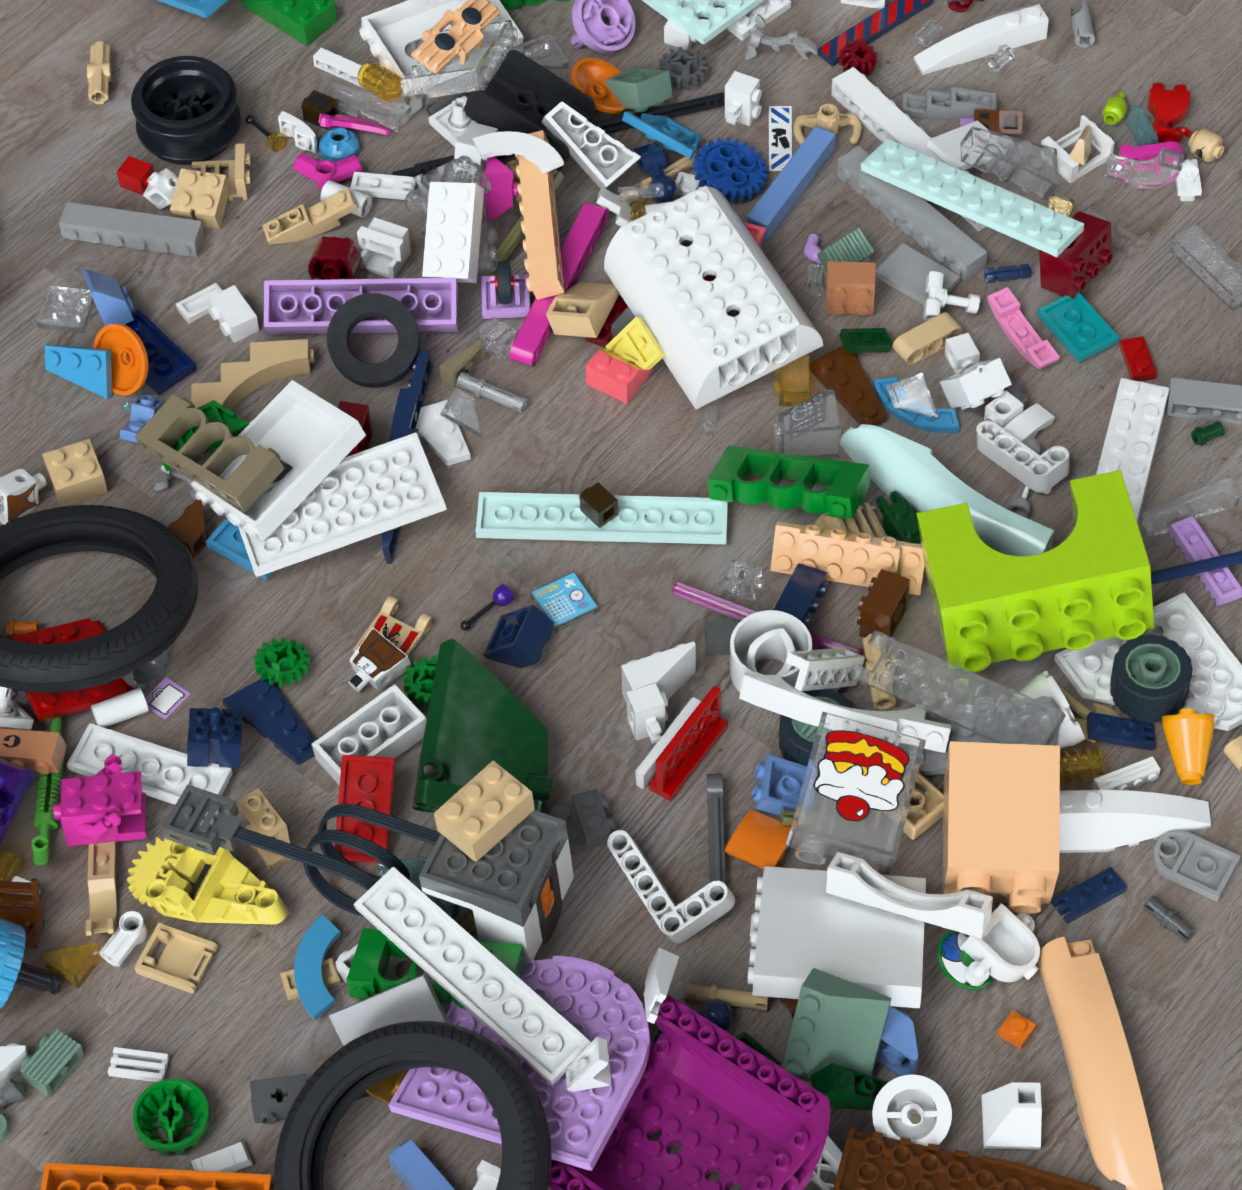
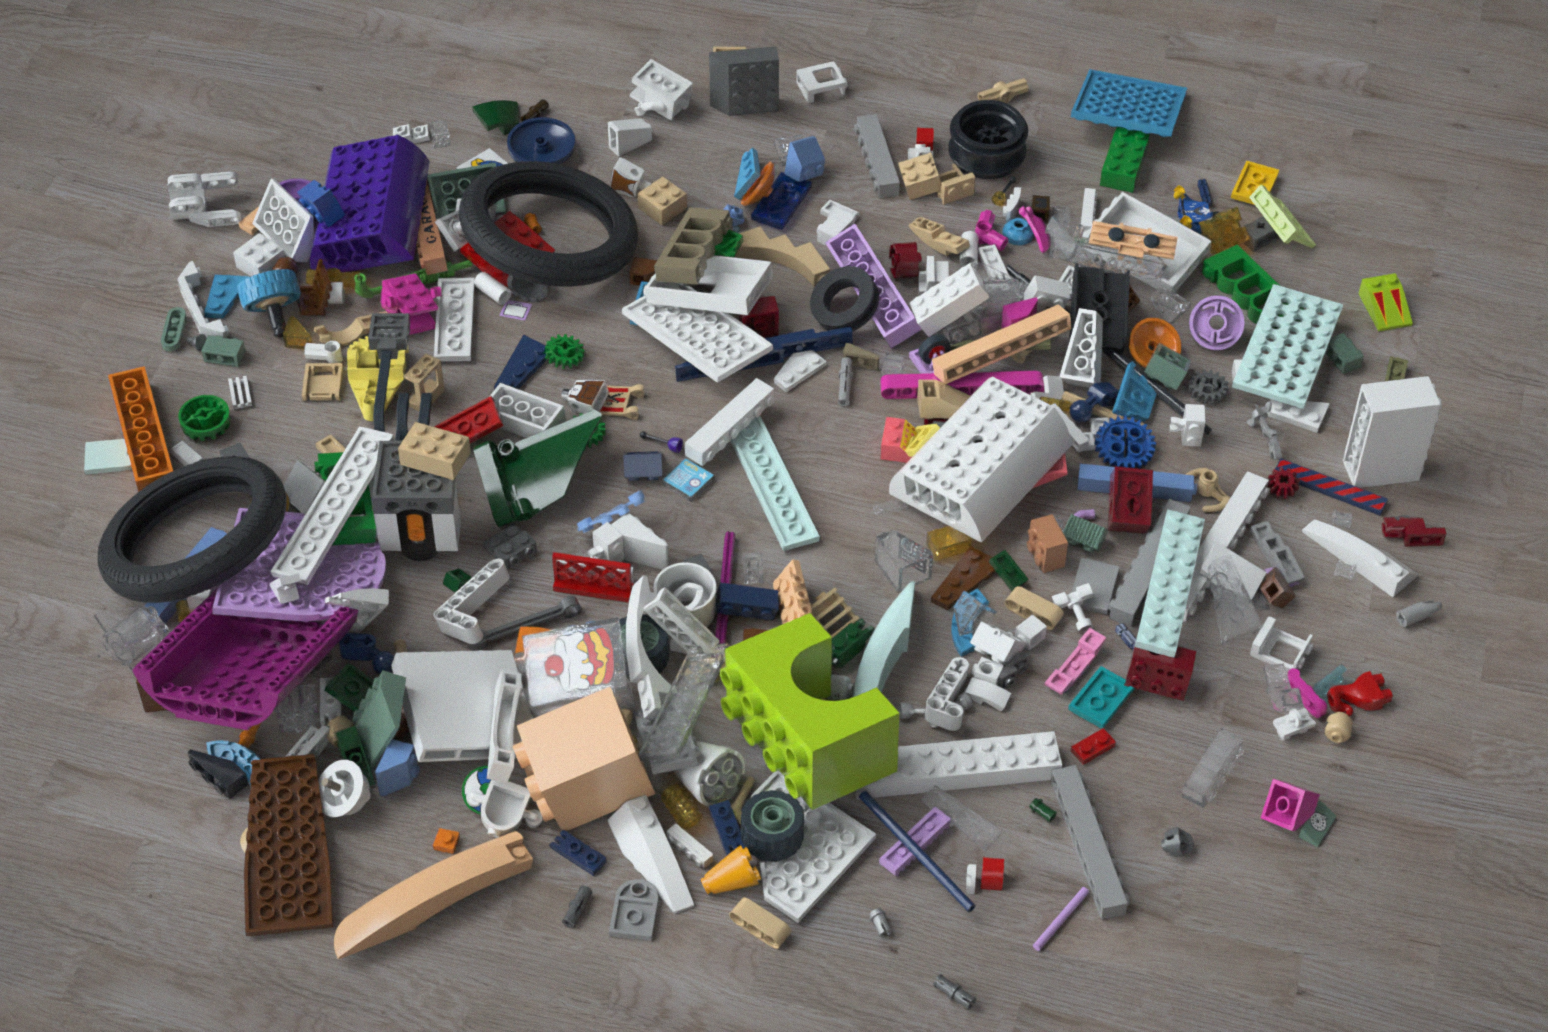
camera: 65 degrees right, 5 degrees down
(214, 737) = (485, 337): dark blue brick -> none
(308, 967) = (329, 445): dark azure tile -> none
(380, 81) = (1079, 217): clear yellow piece -> none
(461, 410) = (819, 369): clear slope -> none
(509, 522) = (729, 422): none -> white brick
(523, 144) = (1047, 307): white tile -> none
(598, 504) = (769, 464): dark brown brick -> none
(598, 722) = (587, 523): none -> light blue plant
(606, 900) = (455, 579): none -> dark green slope
(641, 191) = (1065, 396): clear axle -> none
(780, 137) = (1187, 464): white sticker -> none
(830, 190) = (1130, 500): none -> dark red piece
(846, 479) = (843, 560): green fence -> none
(1012, 1117) = (369, 857): white slope -> none
(1061, 204) = (1213, 652): clear yellow tile -> none
(1082, 147) = (1280, 644): tan slope -> none
(1115, 109) = (1342, 657): lime plant -> none

